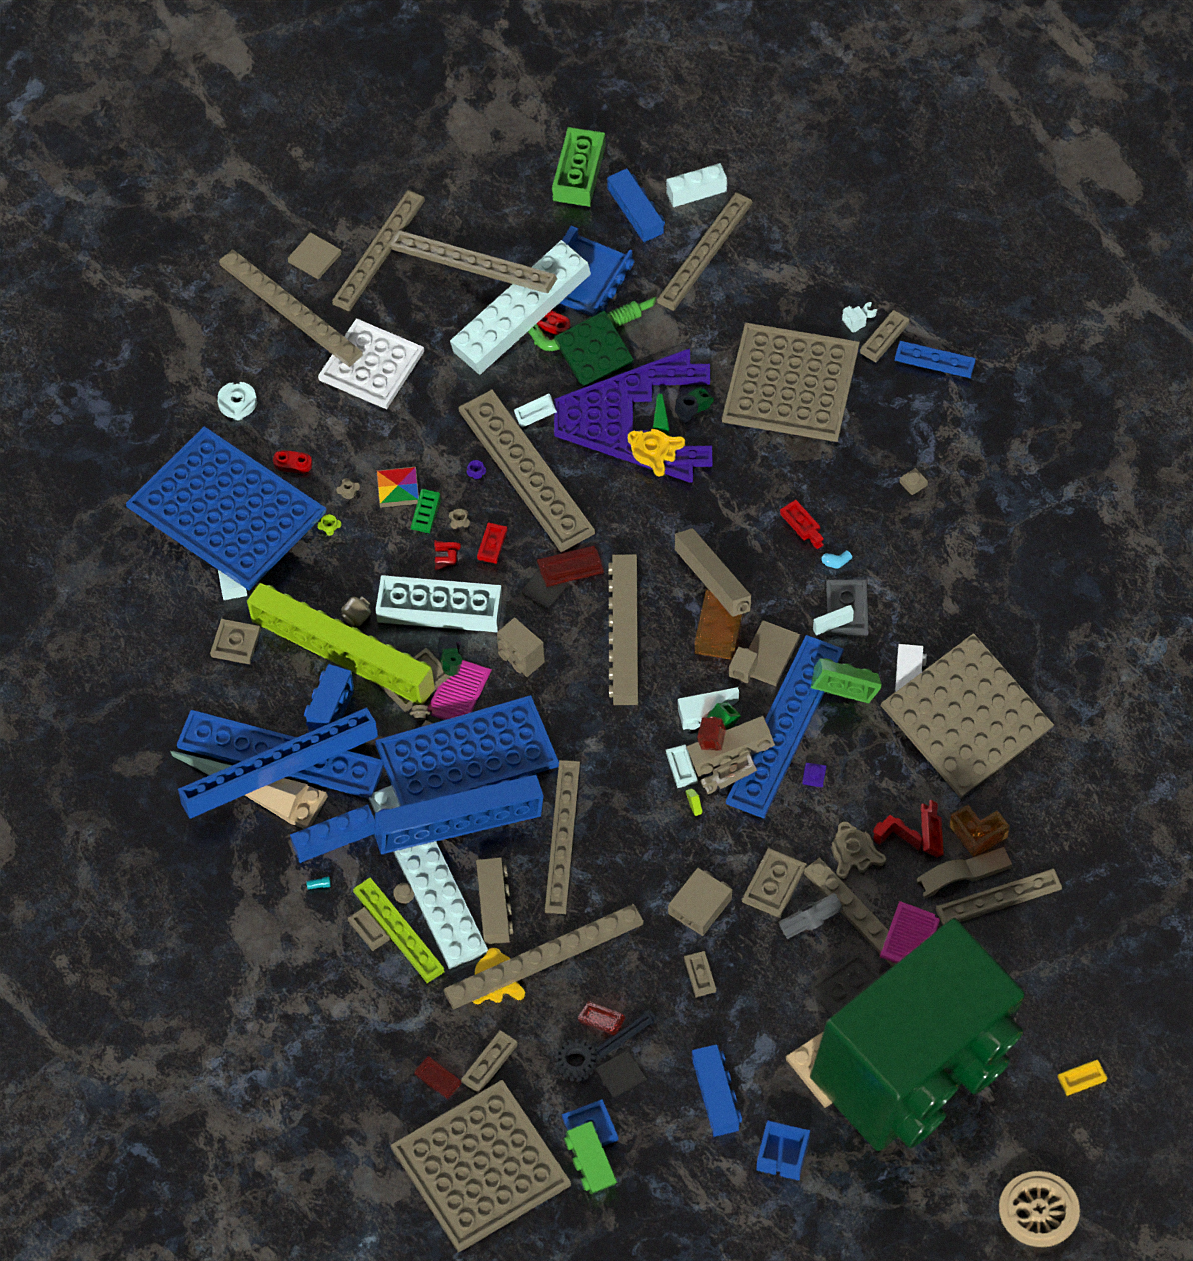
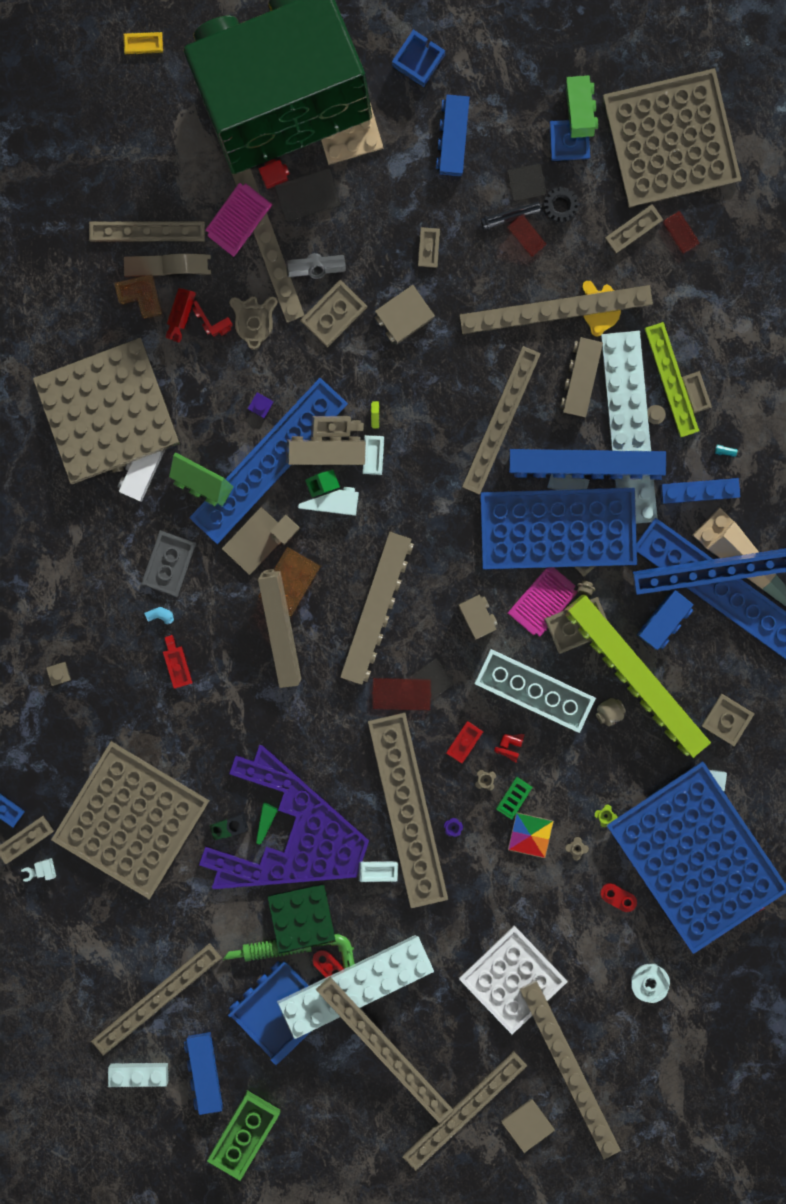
camera: 160 degrees left, 30 degrees up
(448, 652) = (542, 635): dark green leg -> none
(654, 448) = (283, 788): yellow tile -> none
(711, 733) = (340, 462): clear red brick -> none
(833, 620) = (188, 547): light aqua tile -> none

